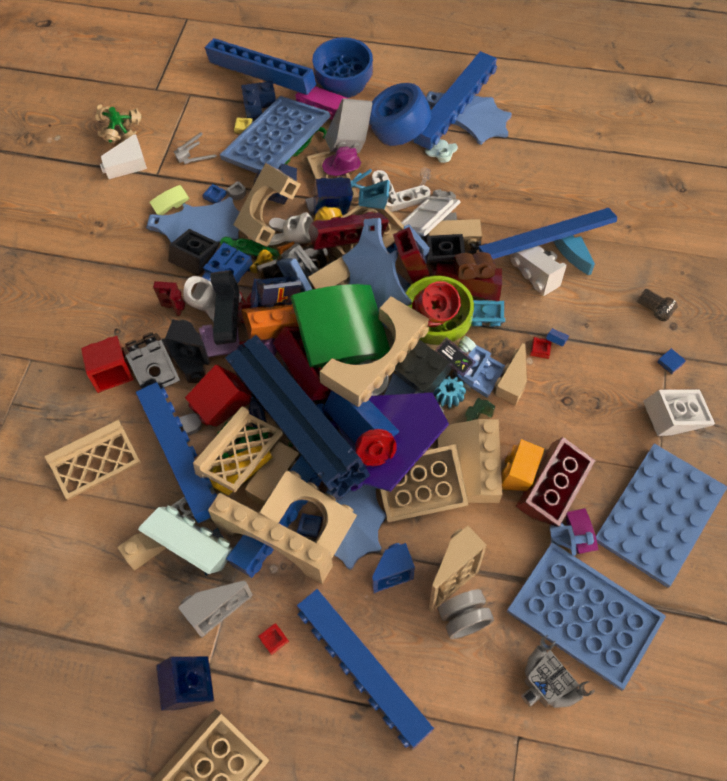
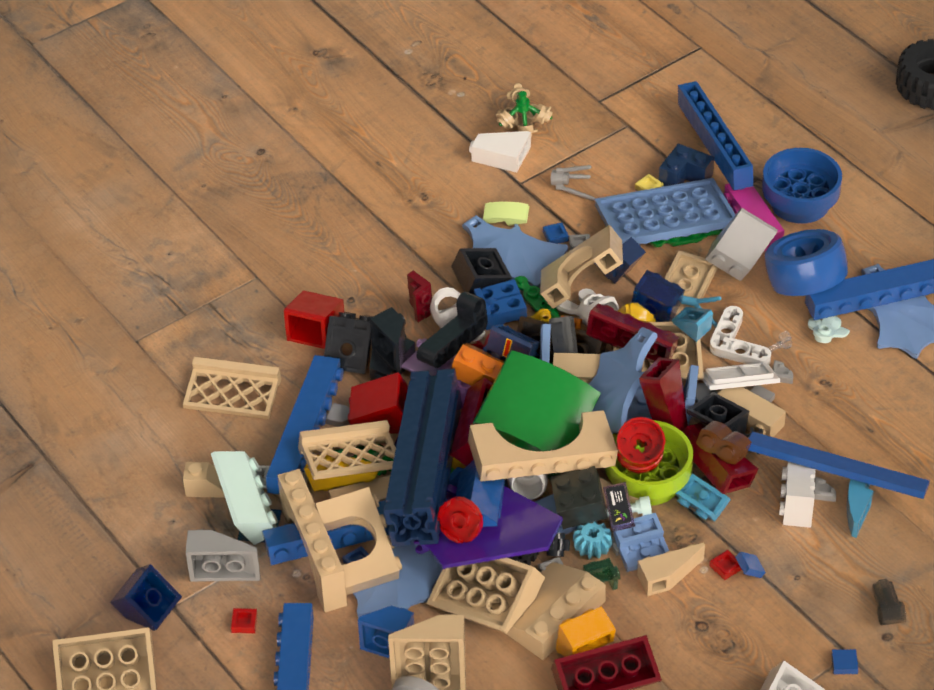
camera: 40 degrees right, 15 degrees down
(342, 162) = (707, 276): magenta piece -> none

